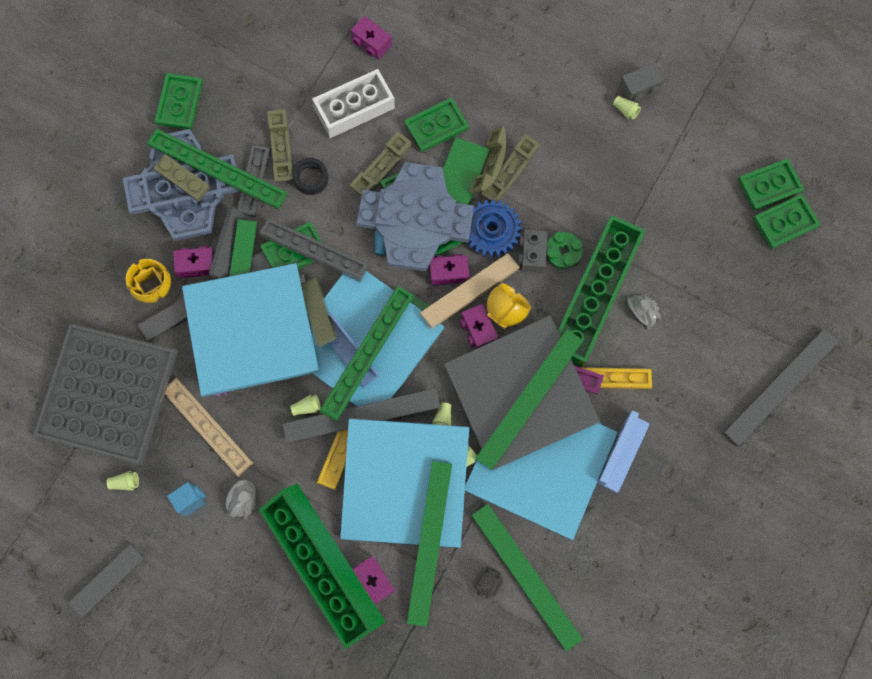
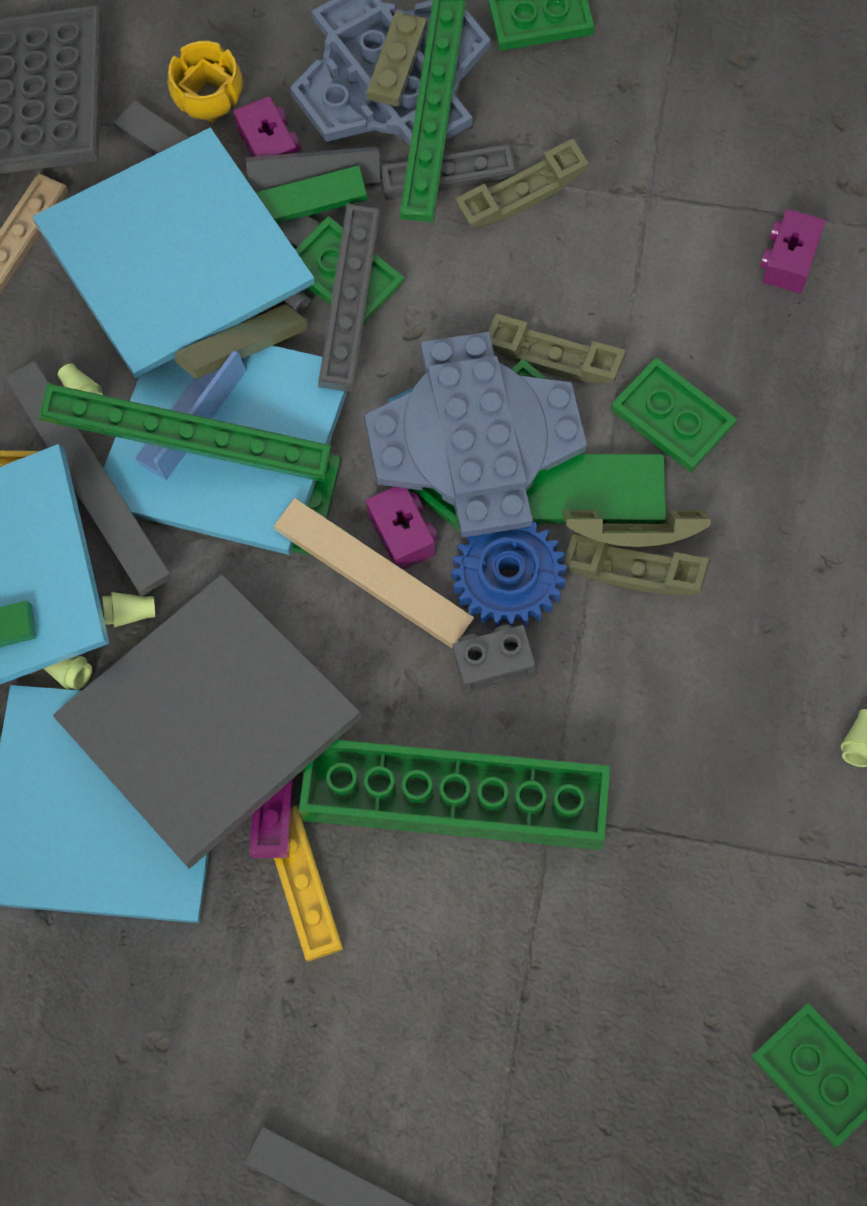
camera: 80 degrees right, 5 degrees down
(310, 163) = (488, 227): black tyre -> none
(354, 103) = (649, 264): white brick -> none
(478, 316) = (308, 629): magenta brick -> none
(506, 306) = (364, 641): yellow piece -> none
(529, 399) = (195, 730): green tile -> none
(561, 240) = (502, 727): green plate -> none
(623, 452) = (165, 944): light blue panel -> none
(644, 309) = (456, 898): light grey hat -> none
(786, 221) = (752, 1131): green plate -> none

